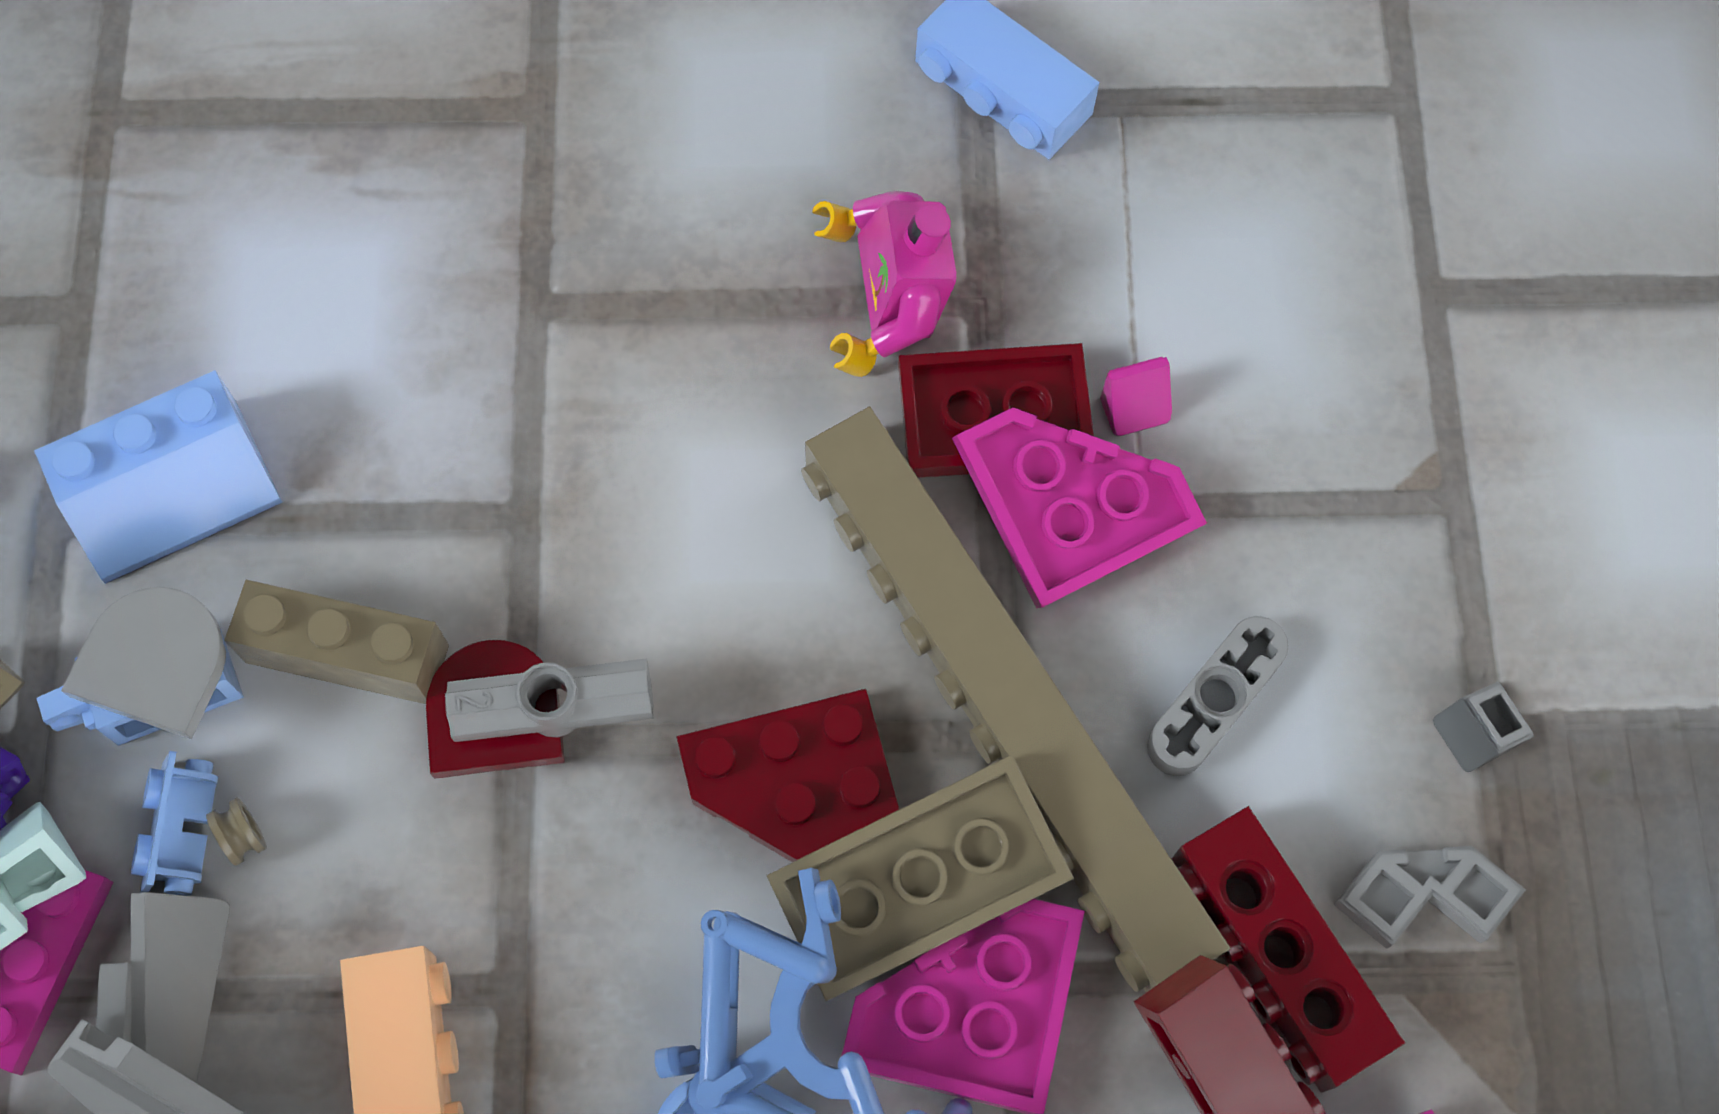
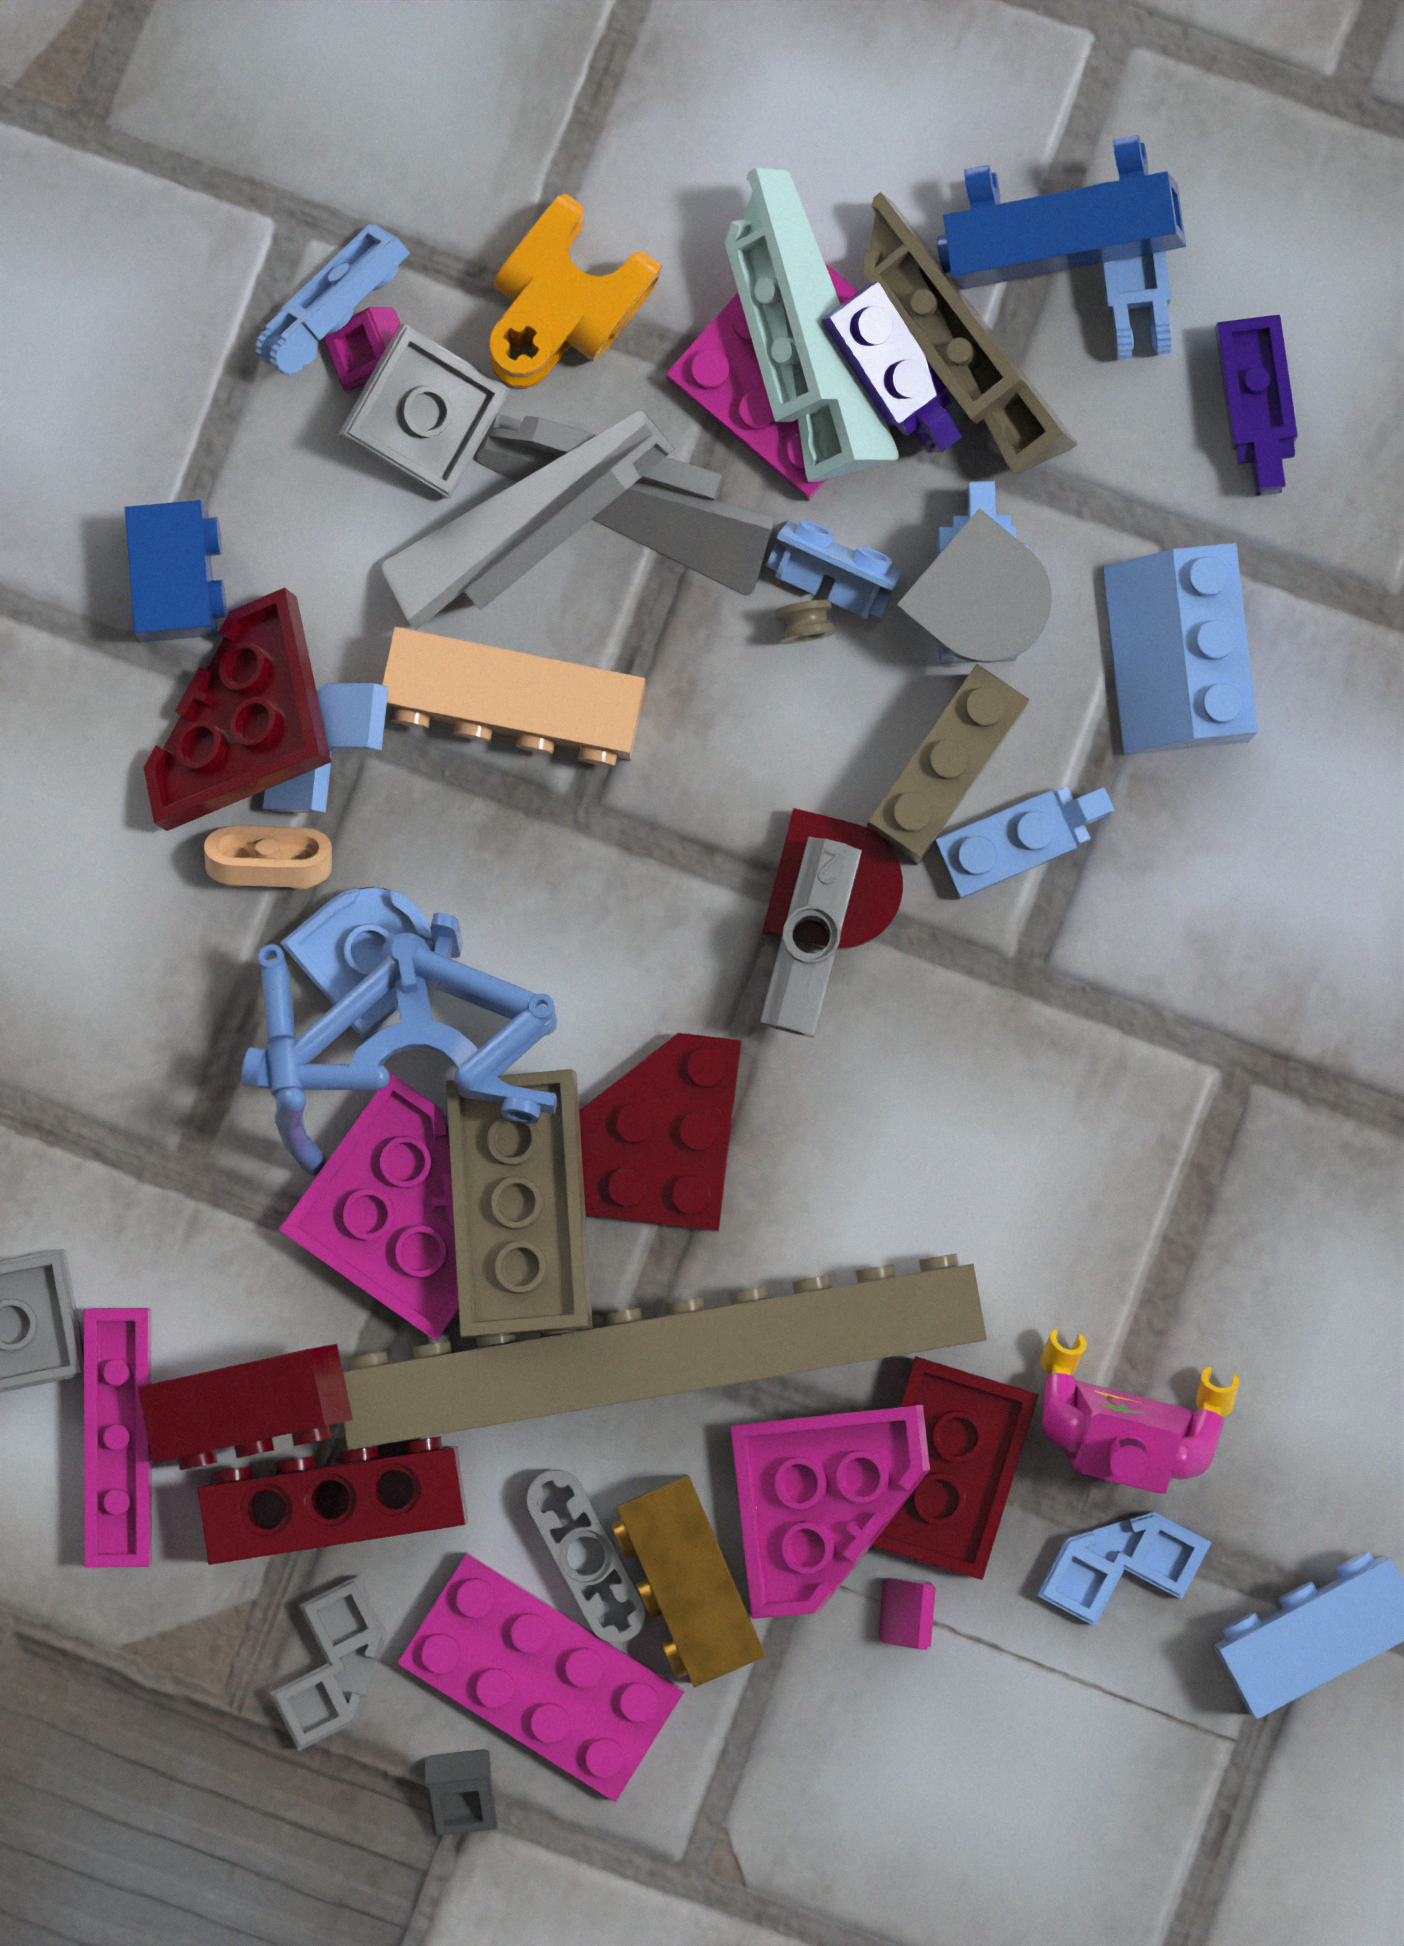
camera: 115 degrees right, 15 degrees up
(390, 556) = (1019, 838): none -> light blue hinge
(1020, 269) = (1095, 1559): none -> light blue tile
(1200, 591) = (687, 1582): none -> pearl gold brick
(1345, 697) = (541, 1677): none -> dark pink plate

